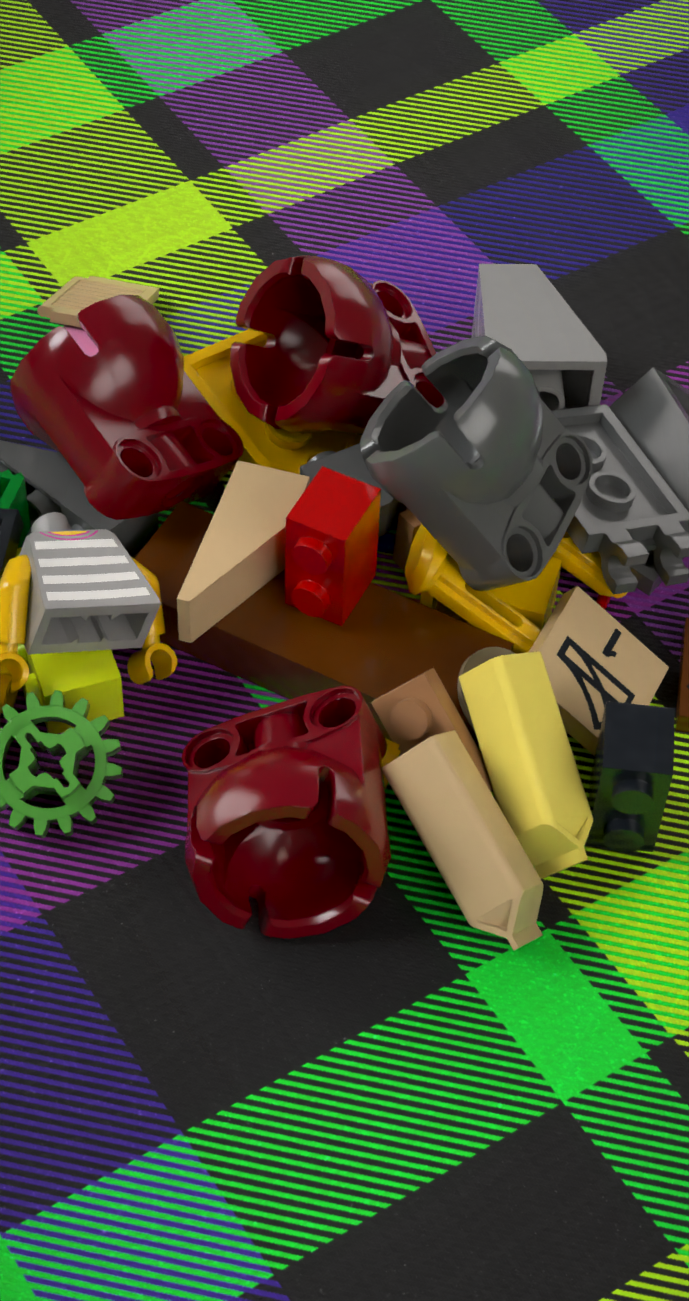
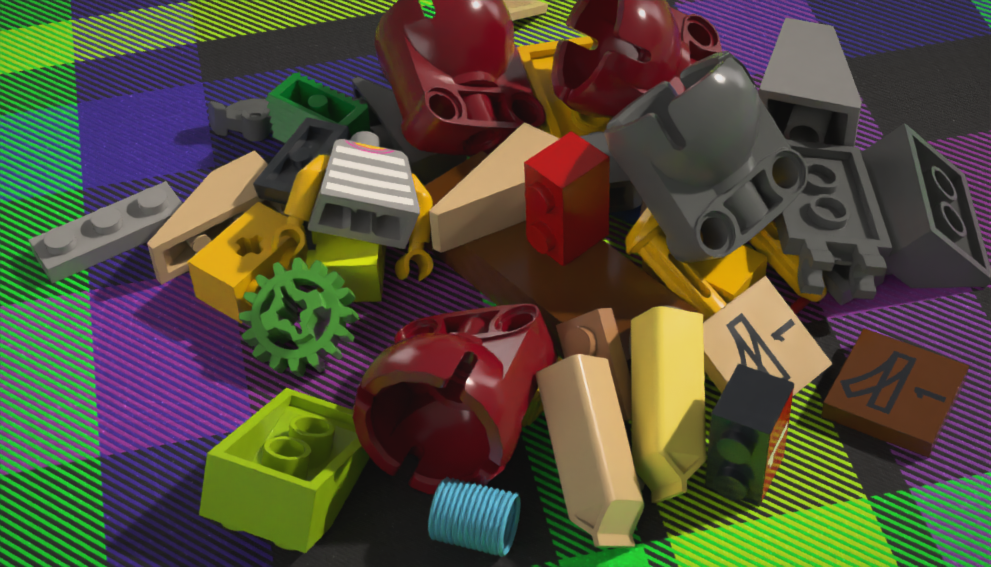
camera: 25 degrees right, 5 degrees down
(121, 955) = (284, 471): none -> lime slope
(364, 952) = (474, 516): none -> medium azure piece

